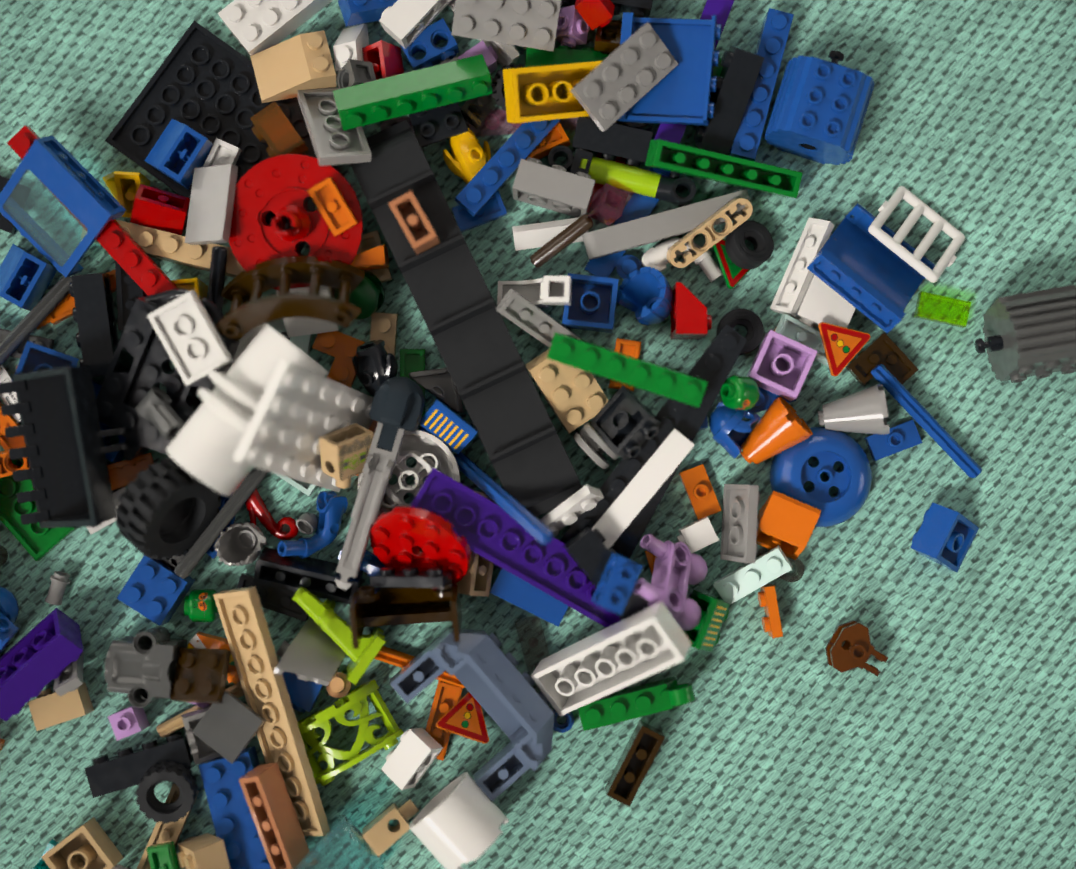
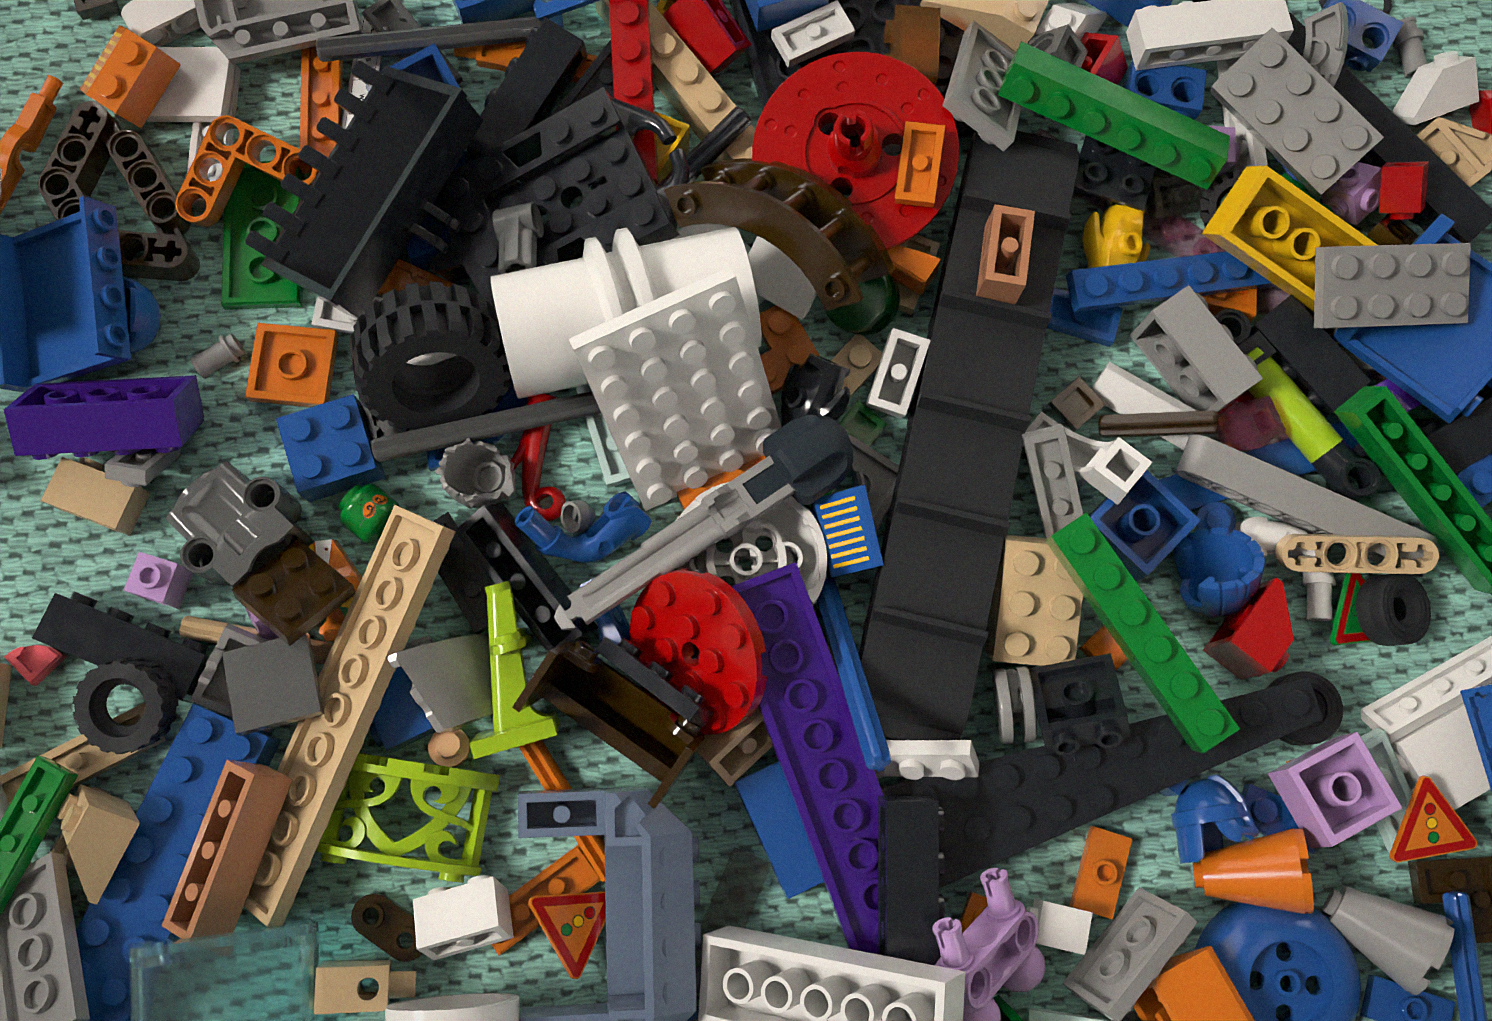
camera: 30 degrees right, 10 degrees down
(99, 562) = (292, 365): none -> orange plate
(103, 806) = (35, 661): none -> coral tile
(190, 337) = (629, 175): white tile -> none
(211, 204) = (774, 60): light grey tile -> none
(345, 453) = (697, 461): tan torso -> none
(380, 788) = (387, 930): none -> dark brown plate
(409, 322) = (897, 373): none -> white brick
(512, 261) = (1076, 404): none -> dark brown plate
(616, 583) = (920, 899): blue brick -> none
(643, 486) = (1045, 802): white tile -> none
(739, 393) = (1259, 781): green head -> none

